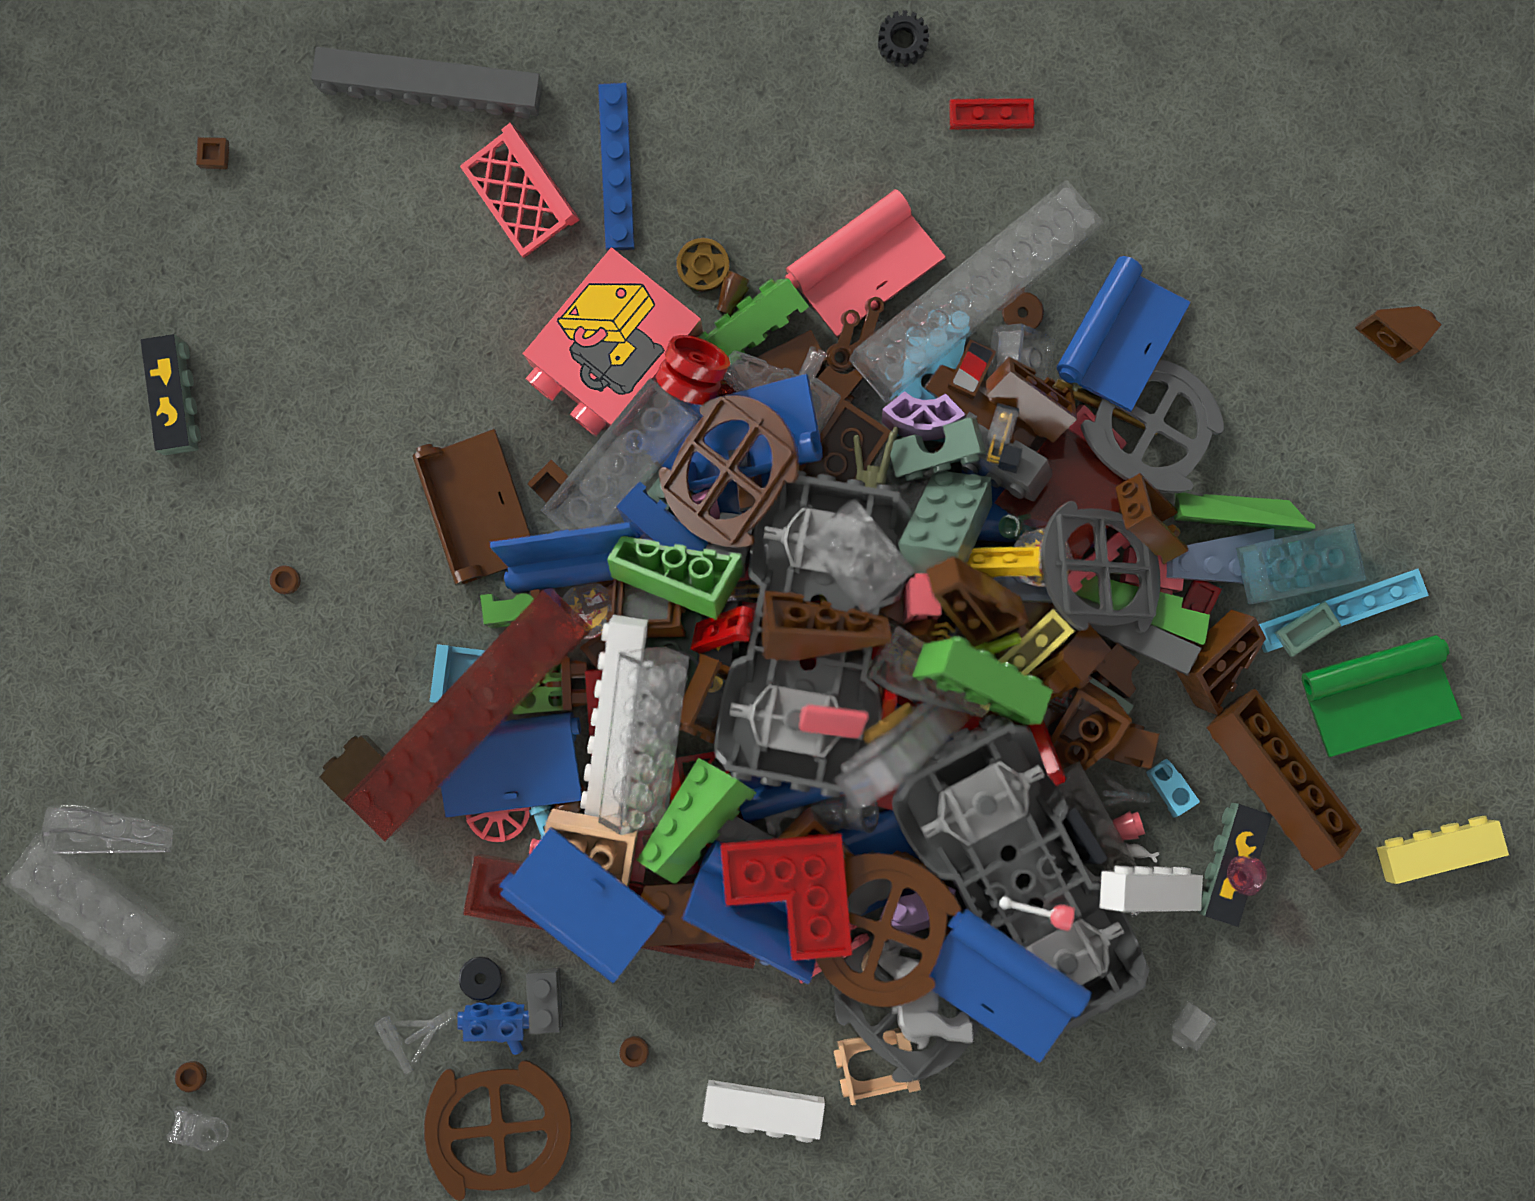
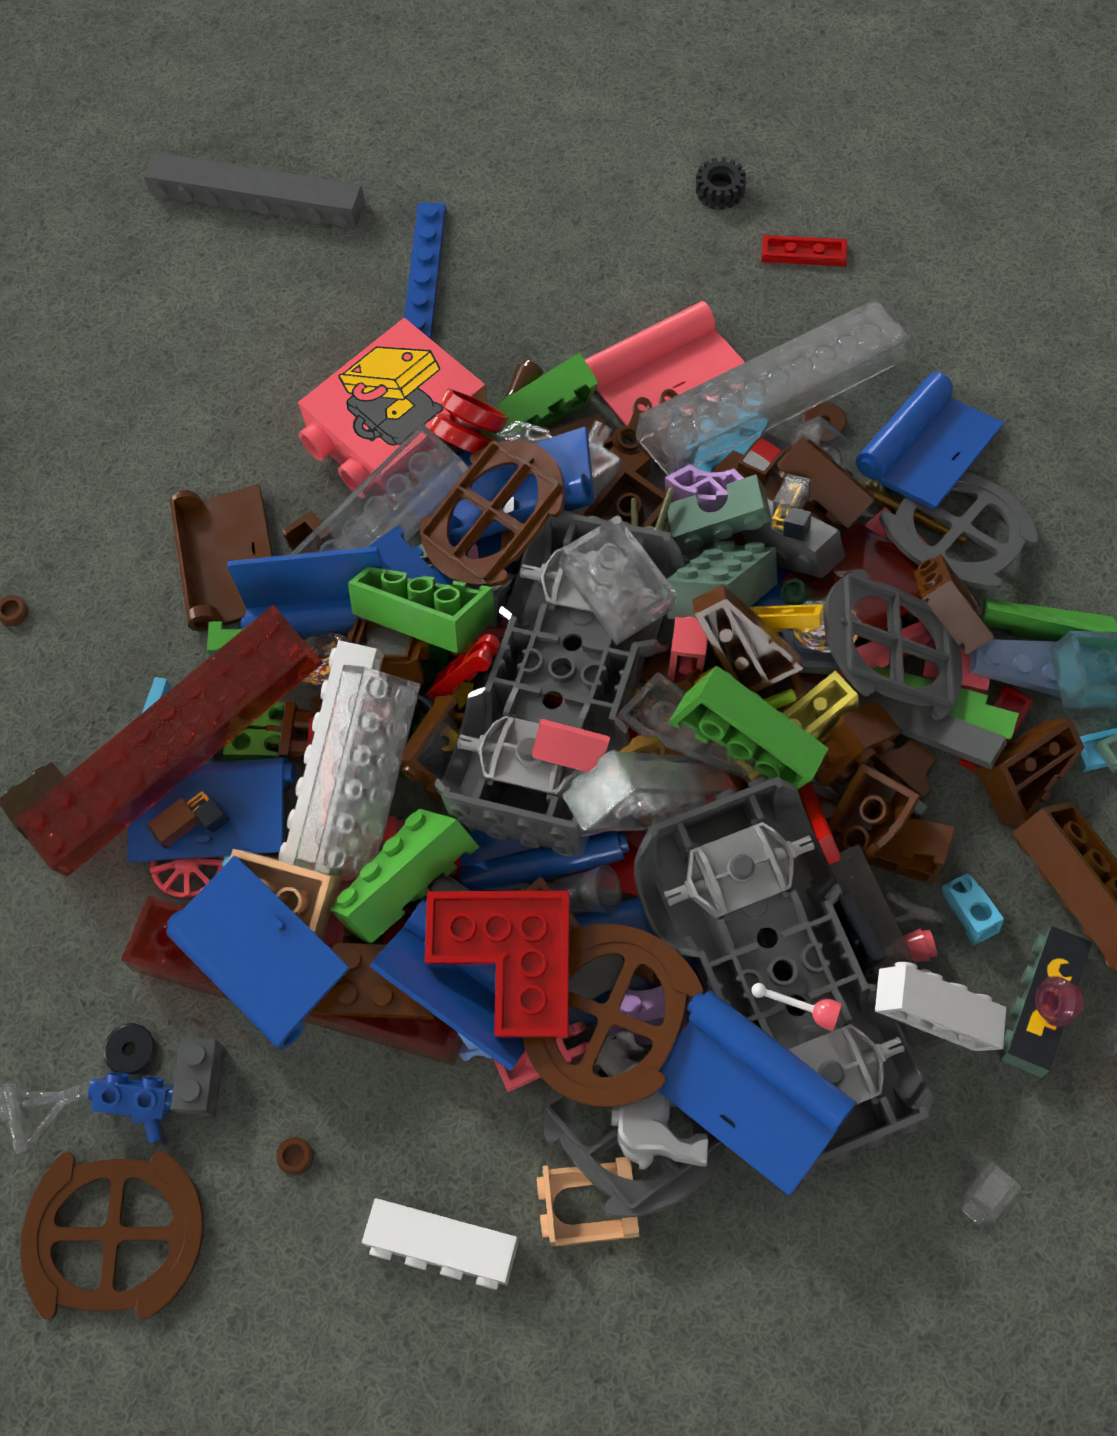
camera: 10 degrees right, 20 degrees down
(212, 153) = (37, 234): reddish brown plate -> none
(491, 779) = (182, 818): none -> piece
(539, 177) = (348, 276): coral fence -> none
(702, 264) = (497, 358): pearl gold wheel -> none
(805, 629) = (541, 657): reddish brown wedge -> none

